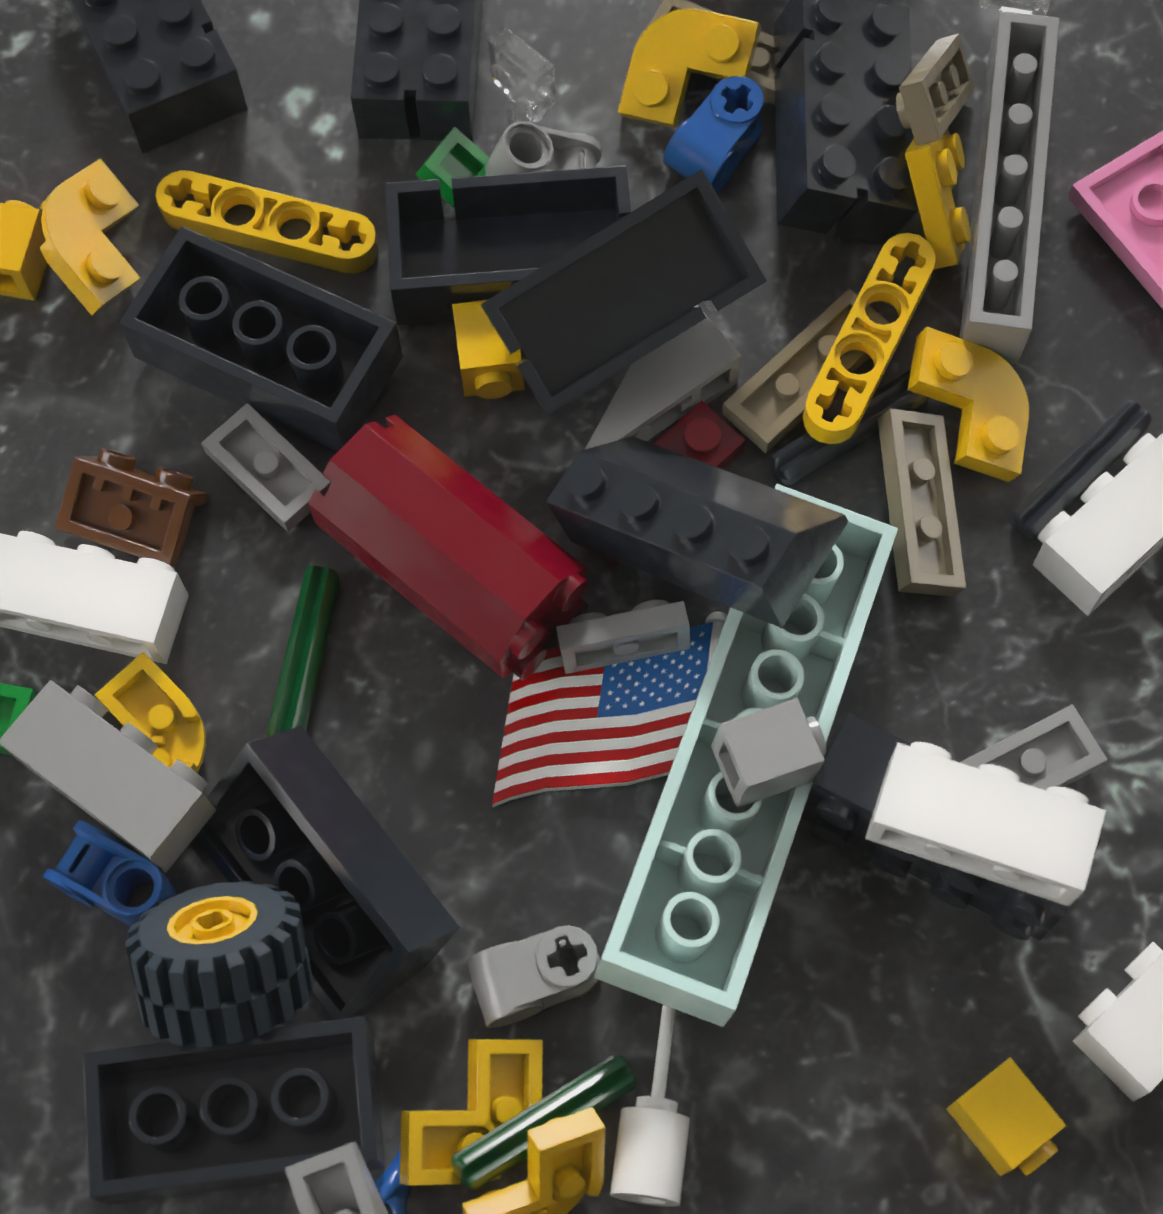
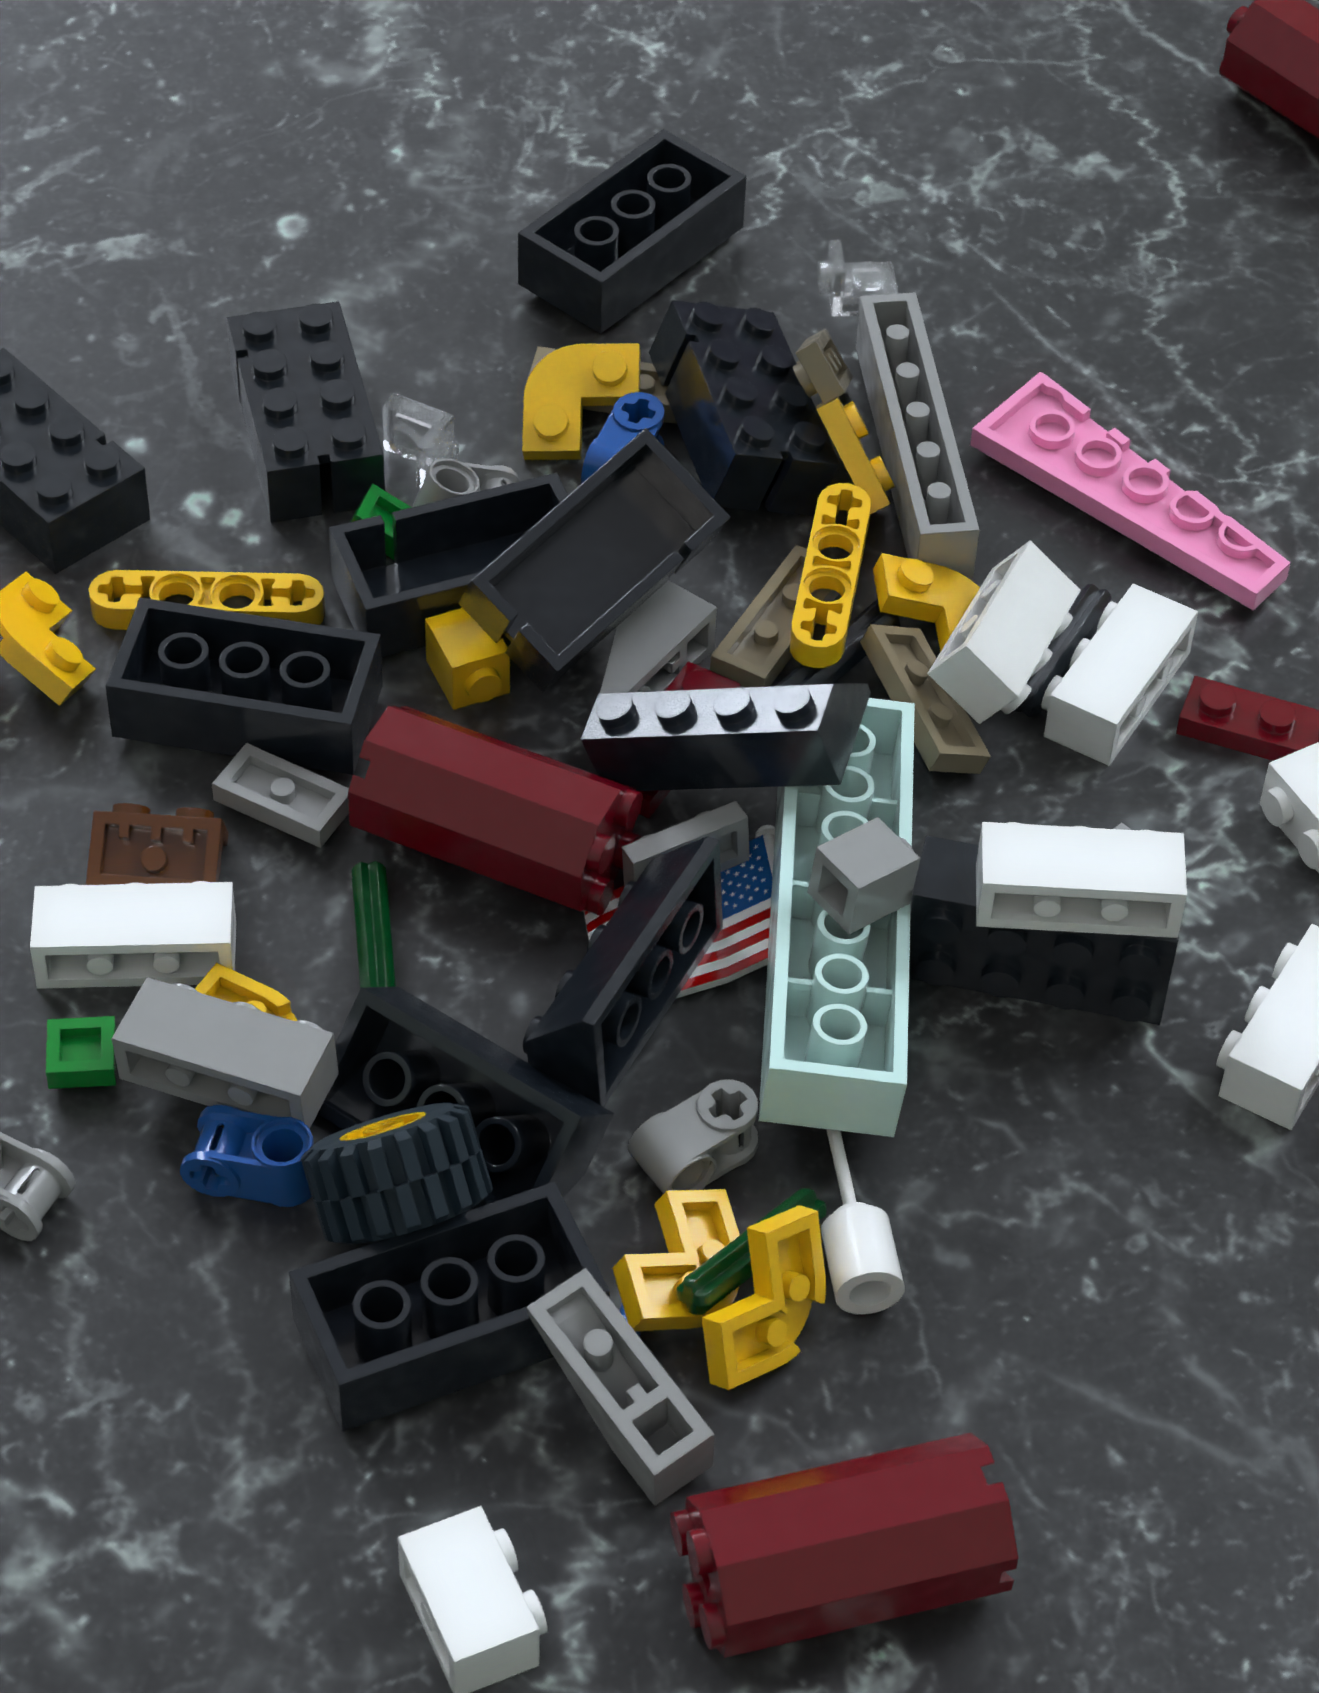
camera: 20 degrees left, 20 degrees down
(519, 773) = (630, 972): none -> black slope
(1008, 1120) = (1181, 1154): yellow brick -> none
(1021, 456) = (1005, 634): none -> white brick

